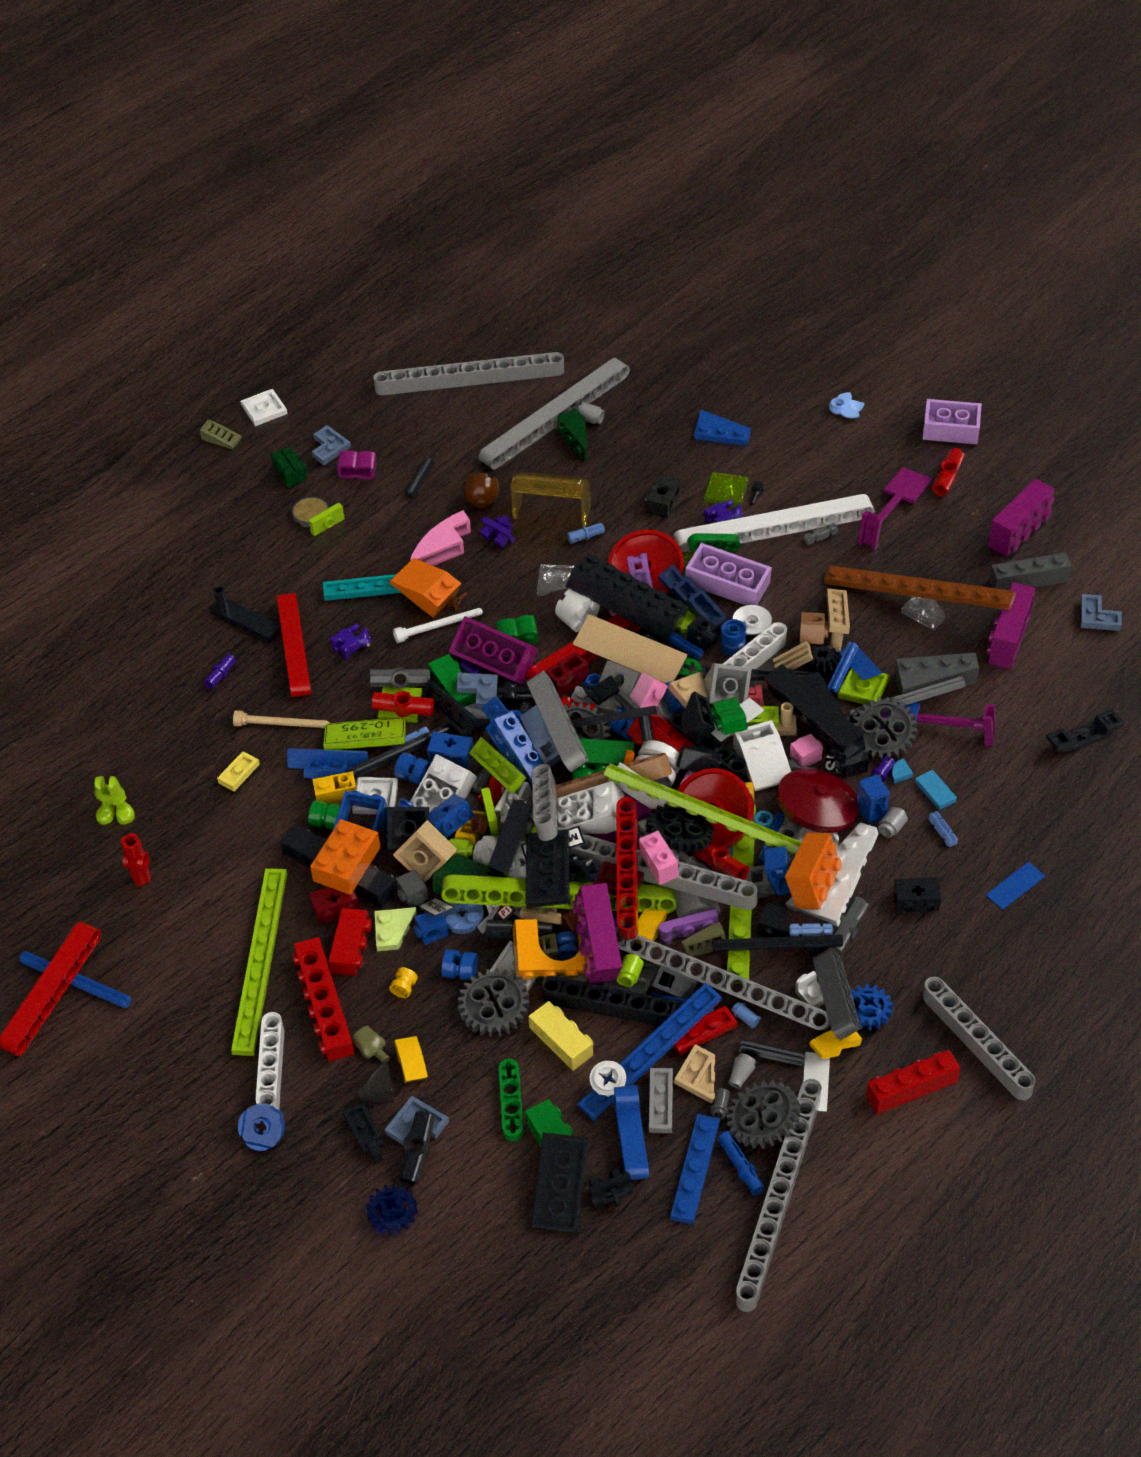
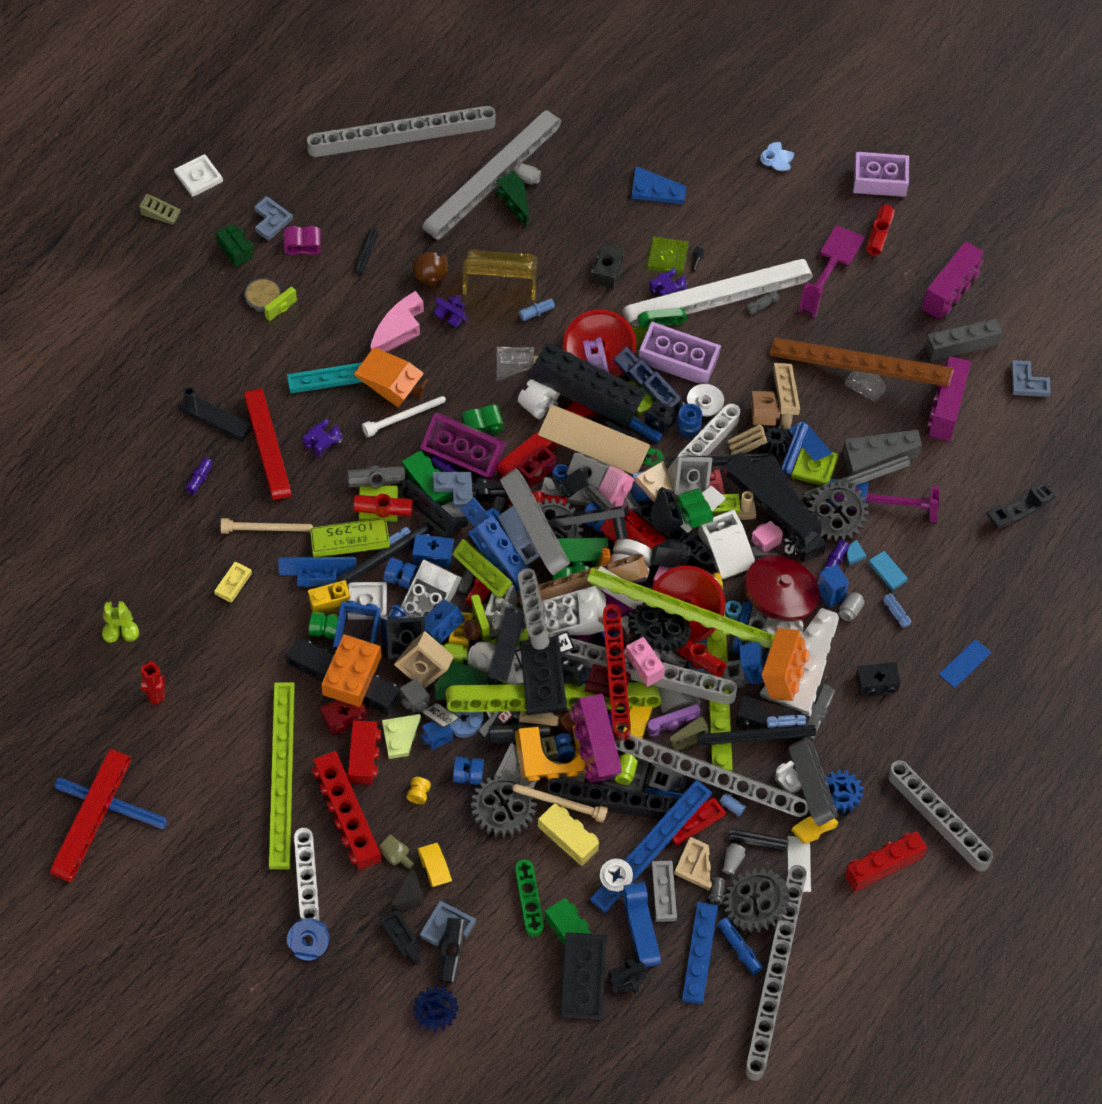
camera: 10 degrees left, 10 degrees up
(594, 1014) = (598, 813): none -> tan piece

